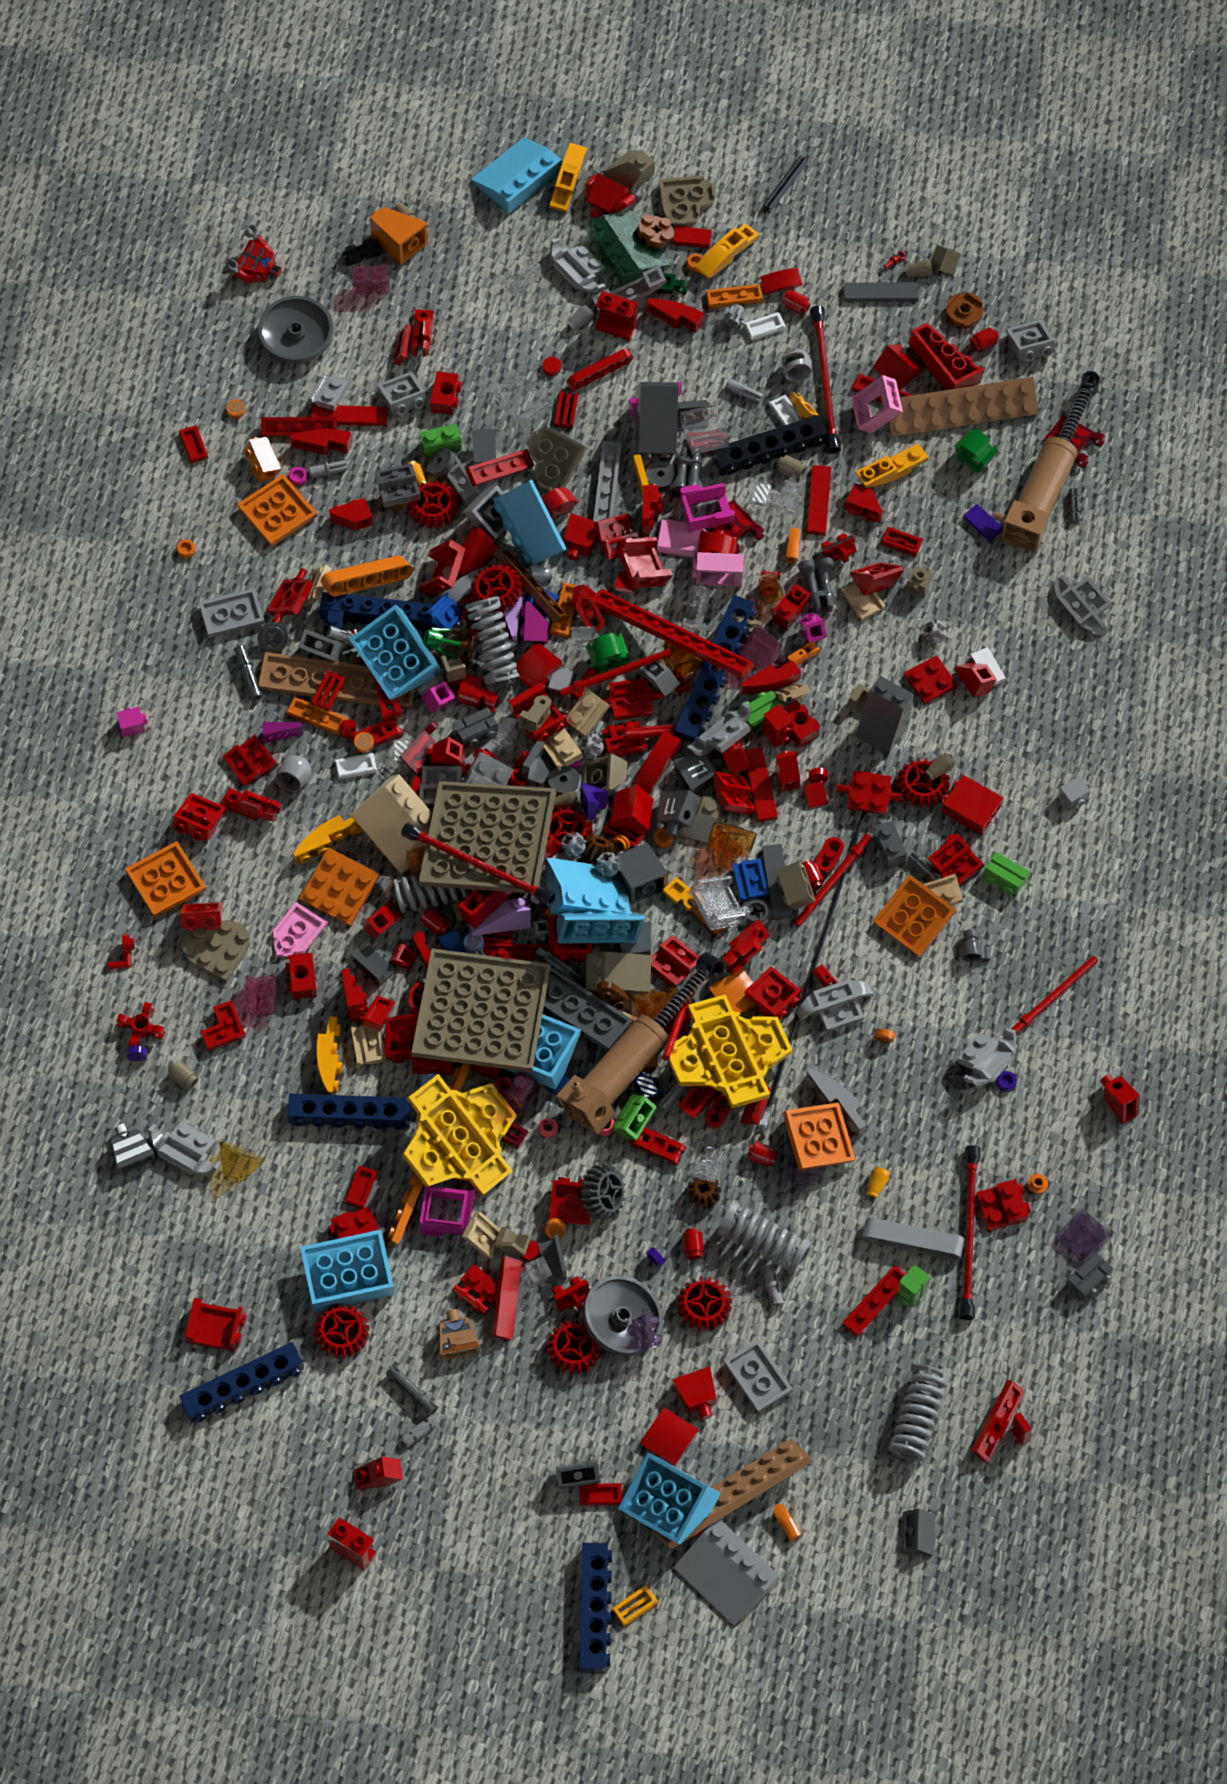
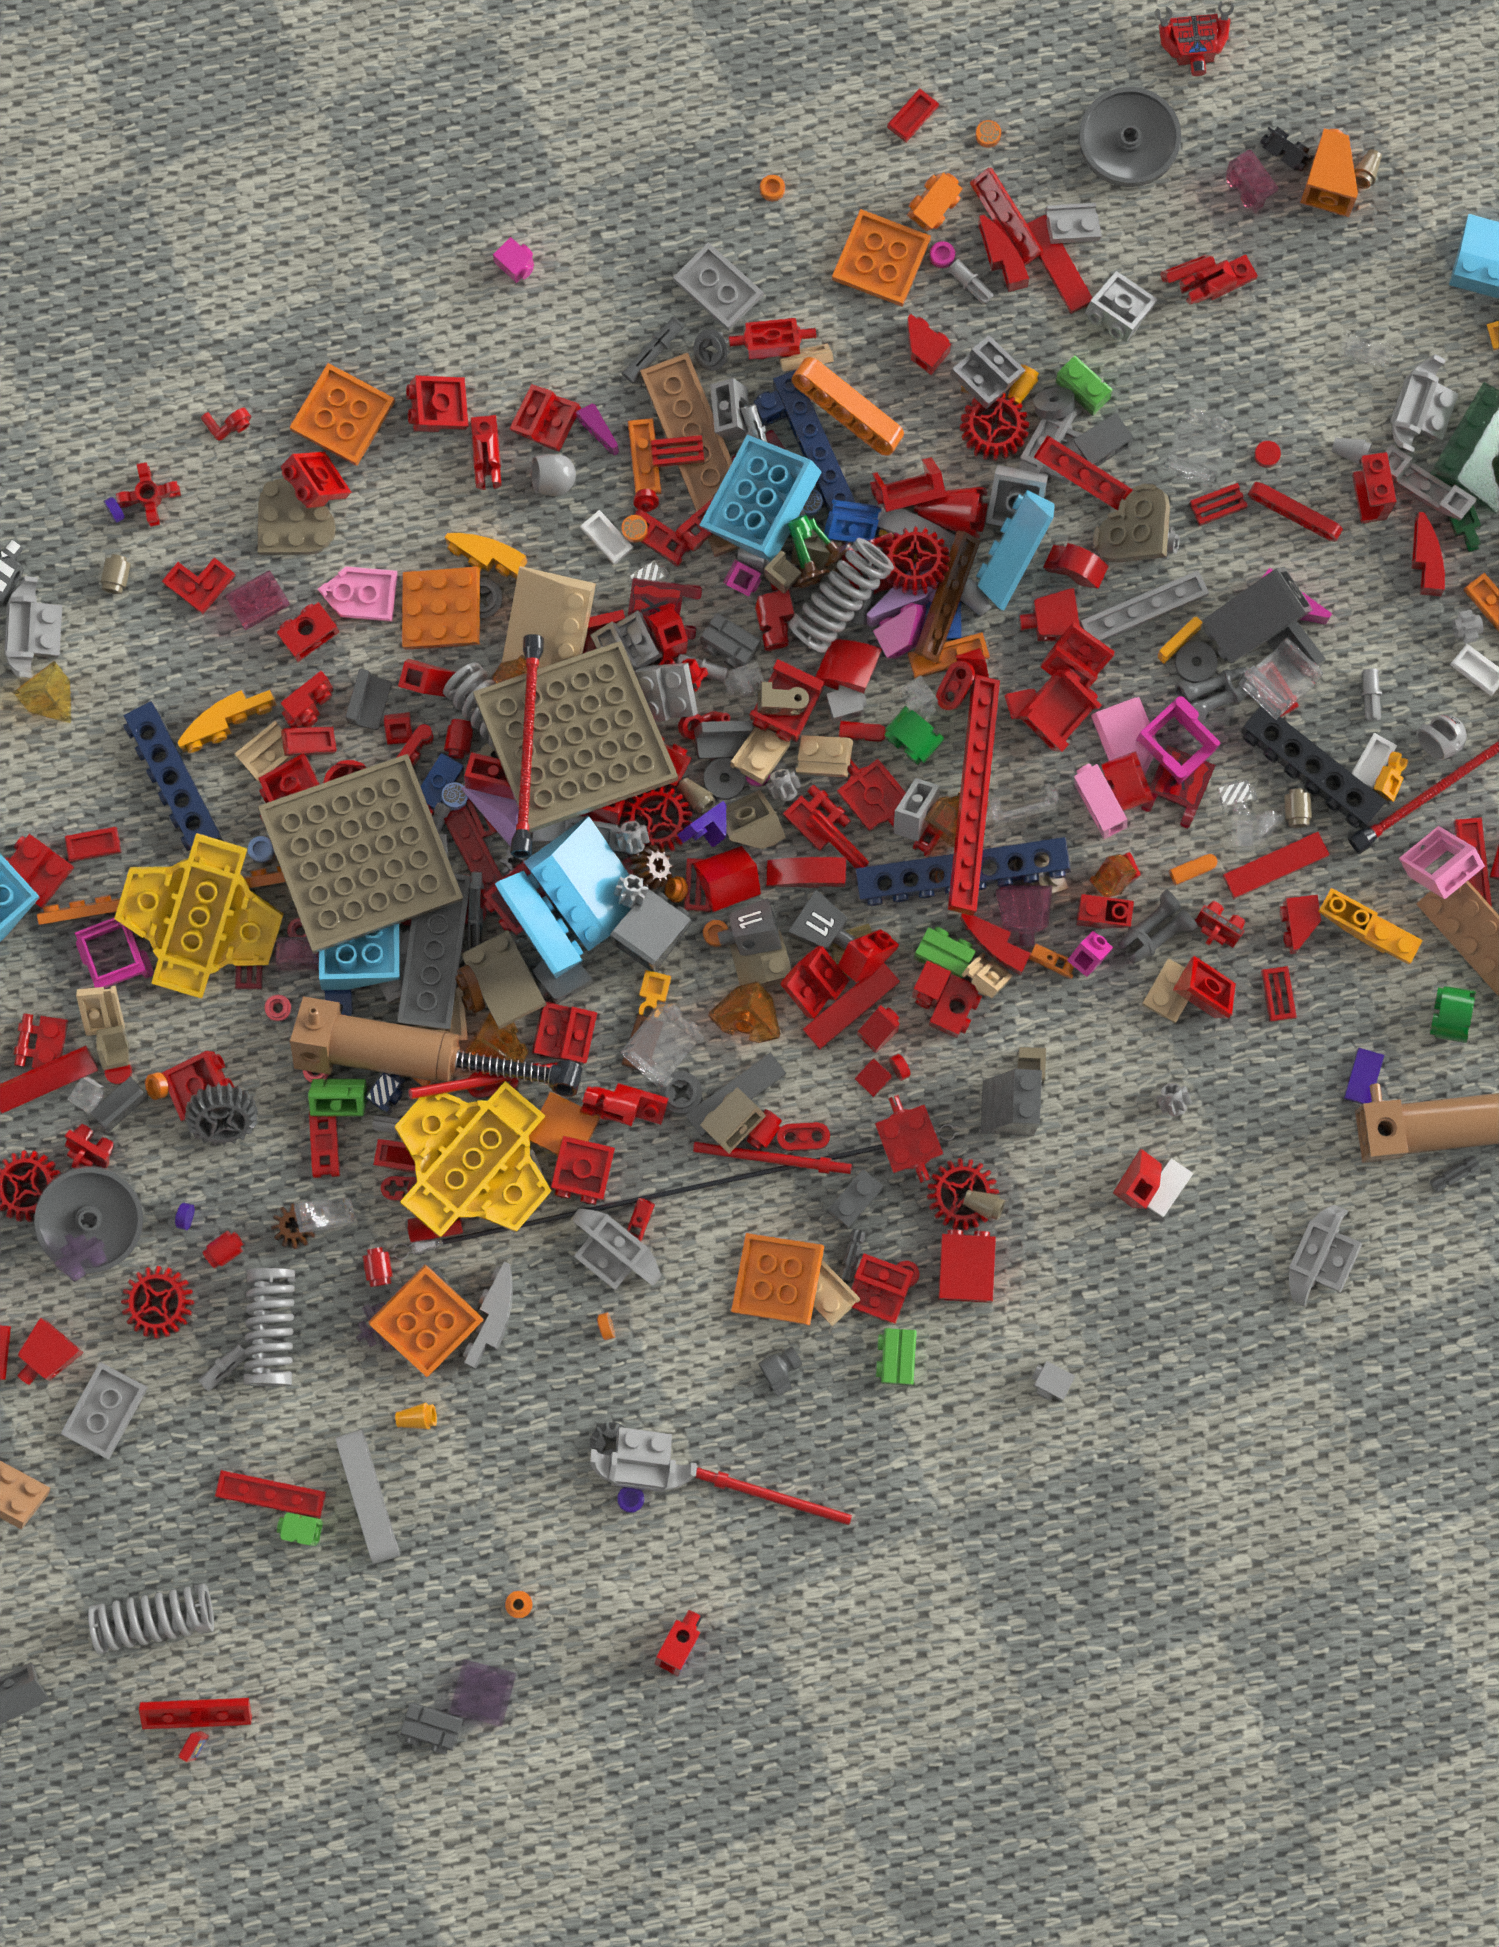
camera: 65 degrees right, 15 degrees up
(445, 383) = (1161, 343): red brick -> none
(580, 686) = (847, 728): red bar -> none
(651, 507) = (1138, 673): red plate -> none
(724, 732) = (880, 927): light grey plate -> none
(750, 879) = (718, 1062): blue plate -> none
(919, 581) = (1231, 1044): dark tan brick -> none
(930, 679) = (1109, 1129): red plate -> none
(972, 1158) = (317, 1603): red hose -> none
(1003, 1205) = (469, 1578): red plate -> none

